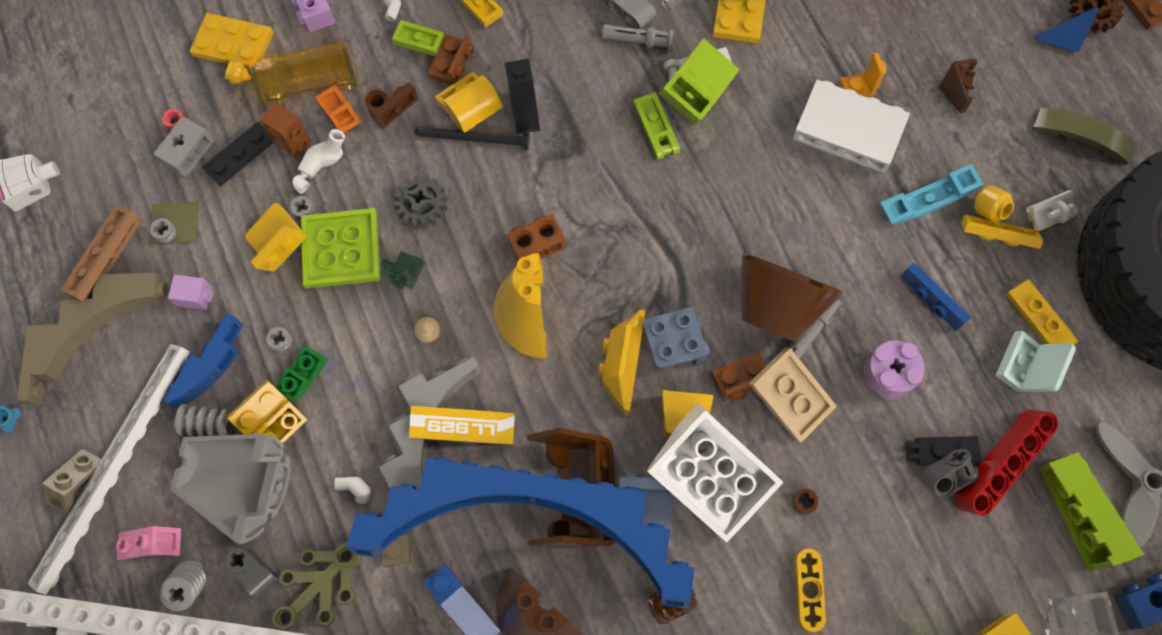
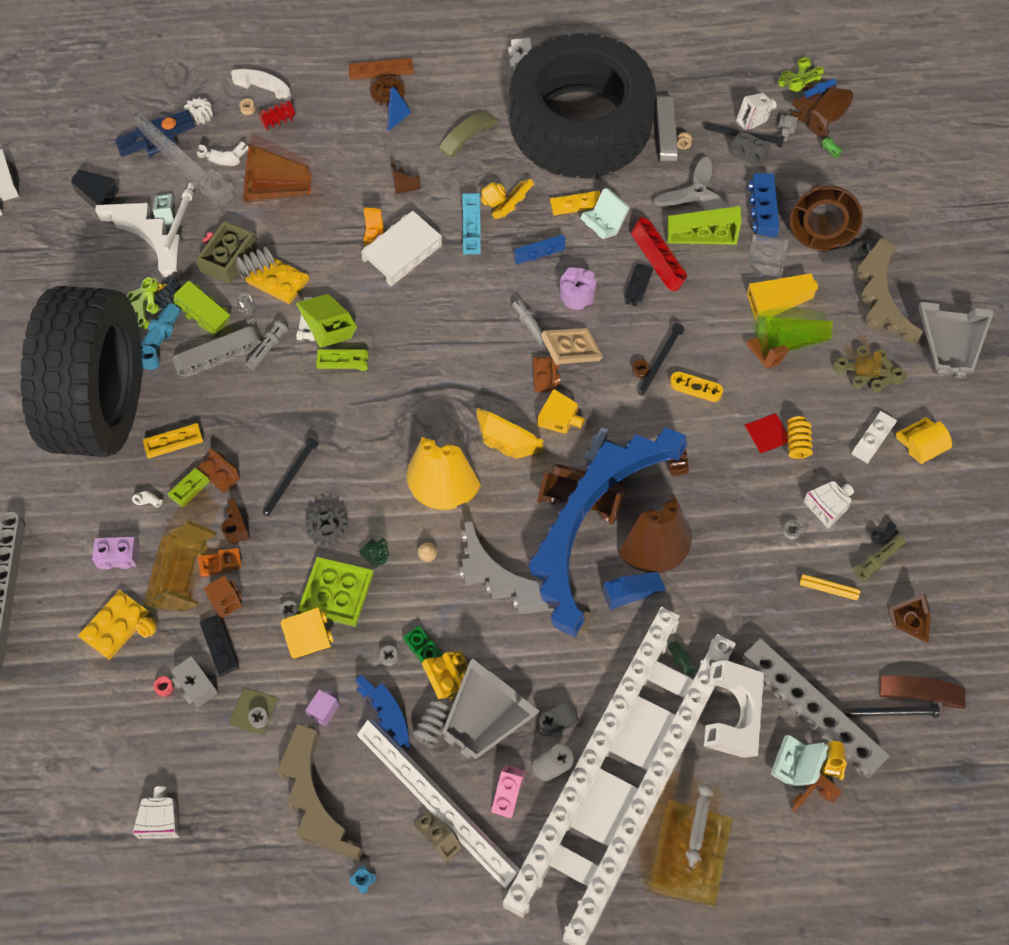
camera: 70 degrees left, 10 degrees down
(101, 253) = (260, 762): medium nougat fence -> none
(318, 157) = (253, 584): white arm -> none
(321, 583) = (583, 676): olive plant -> none
(356, 486) = (527, 630): white arm -> none
(461, 425) = (509, 548): yellow sticker -> none
(469, 101) = (261, 468): yellow brick -> none
(522, 96) = (279, 429): black slope -> none
(538, 244) = (395, 460): dark orange brick -> none
(676, 338) = (505, 396): sand blue bracket -> none
(713, 473) = (604, 403): white slope -> none
(782, 298) = (506, 324): reddish brown cone -> none
(891, 531) = (677, 330): none -> black bar
(949, 474) = (654, 284): dark grey piece -> none
(1052, 211) = (512, 166): white hips -> none

